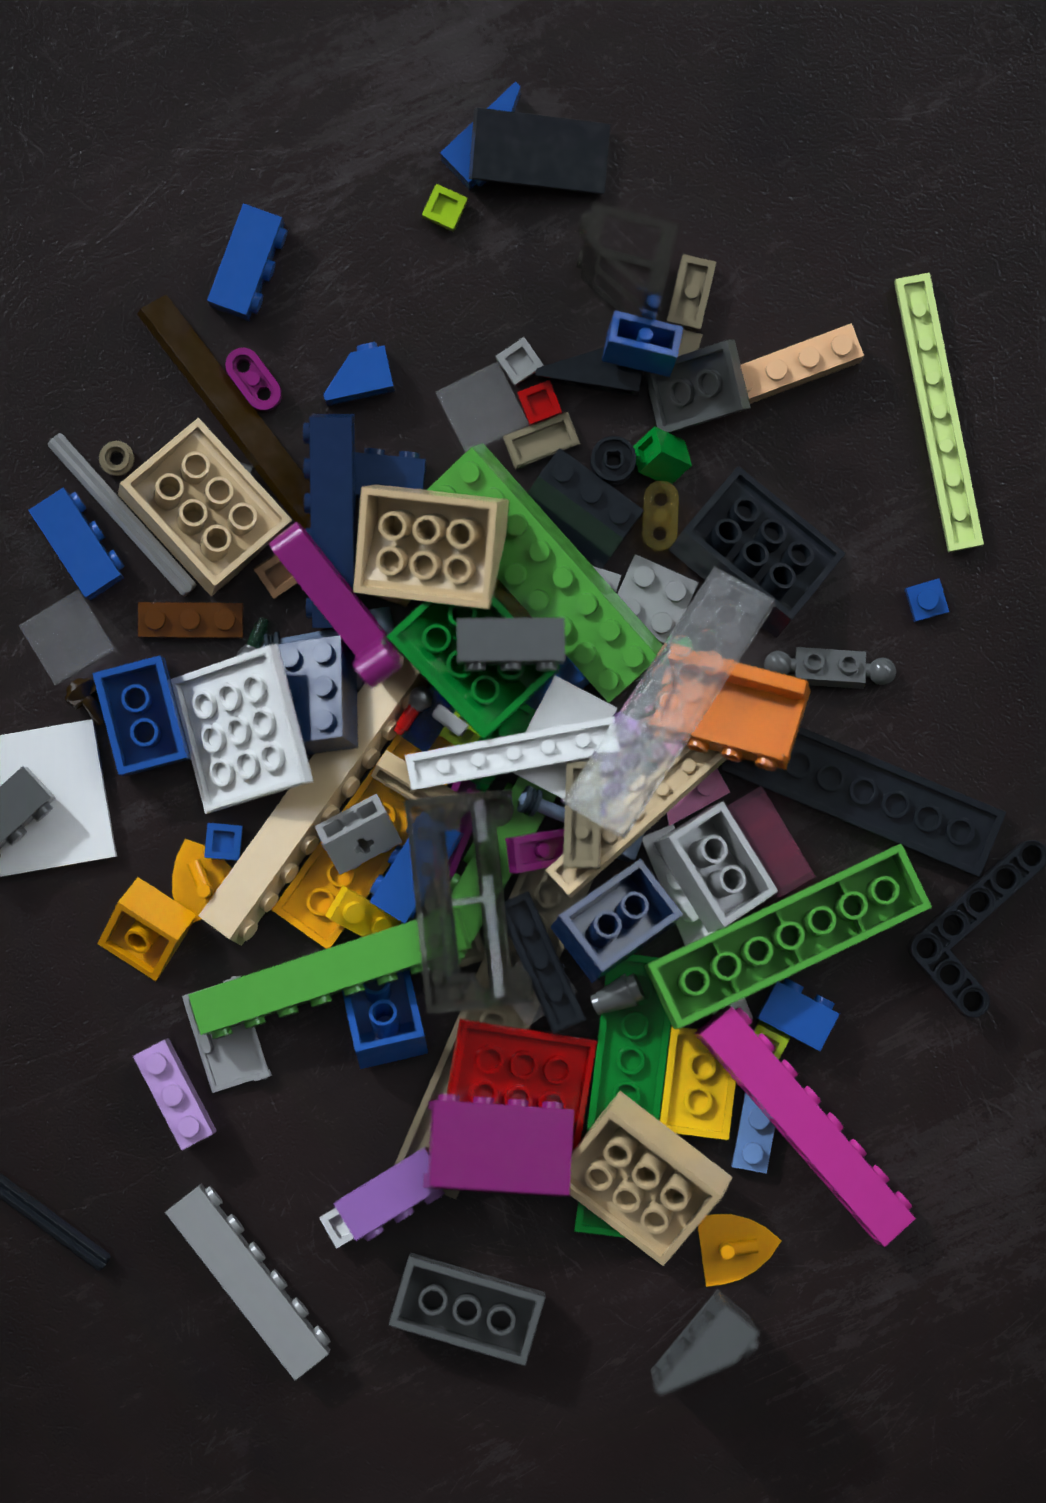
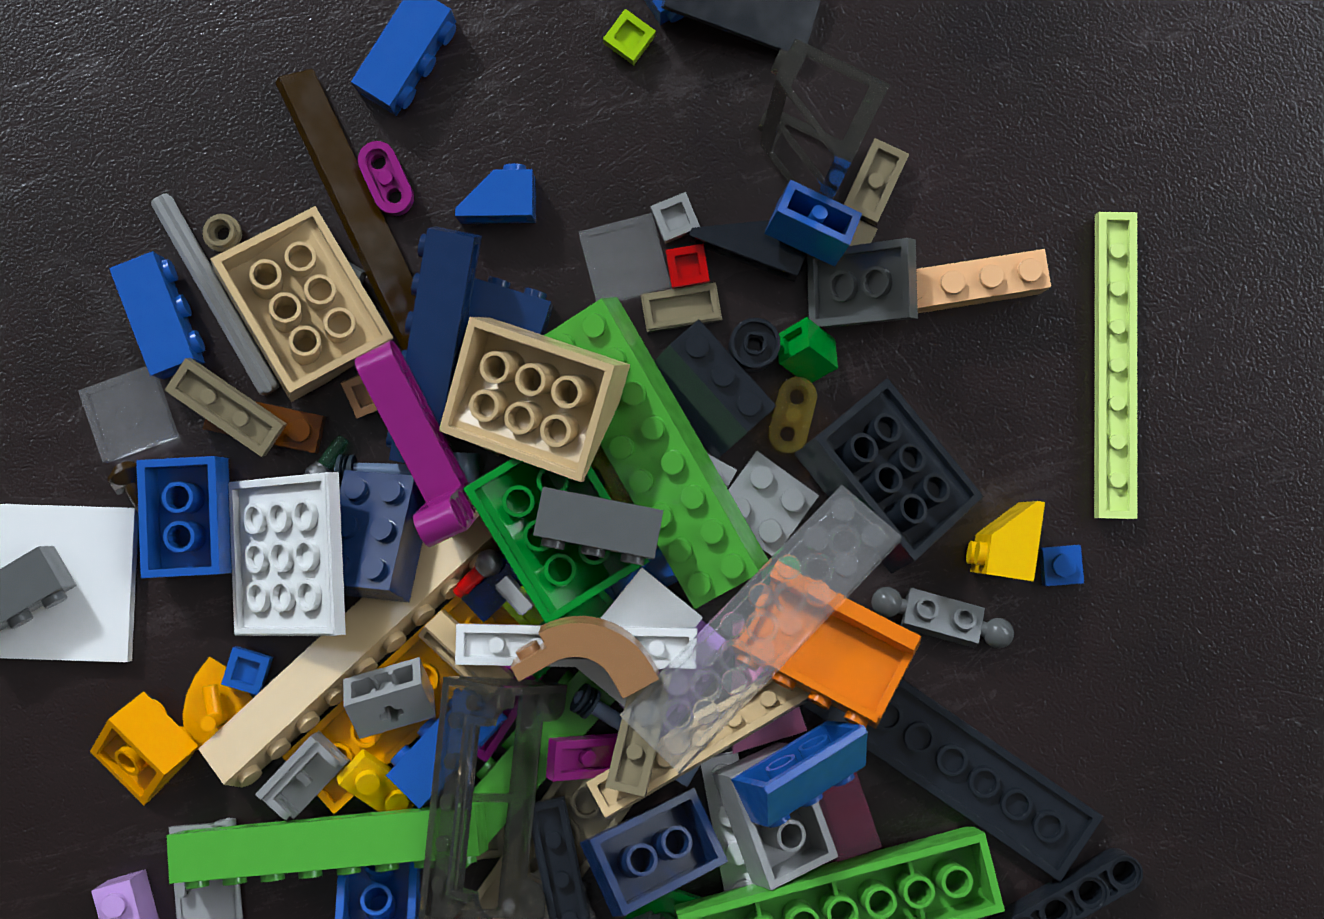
camera: 10 degrees right, 0 degrees up
(158, 611) = (225, 407): none -> dark tan plate
(296, 920) = (302, 776): none -> light grey hinge
(526, 740) = (592, 639): none -> medium nougat arch
(730, 819) = (802, 772): none -> blue slope
(872, 592) = (1009, 543): none -> yellow slope

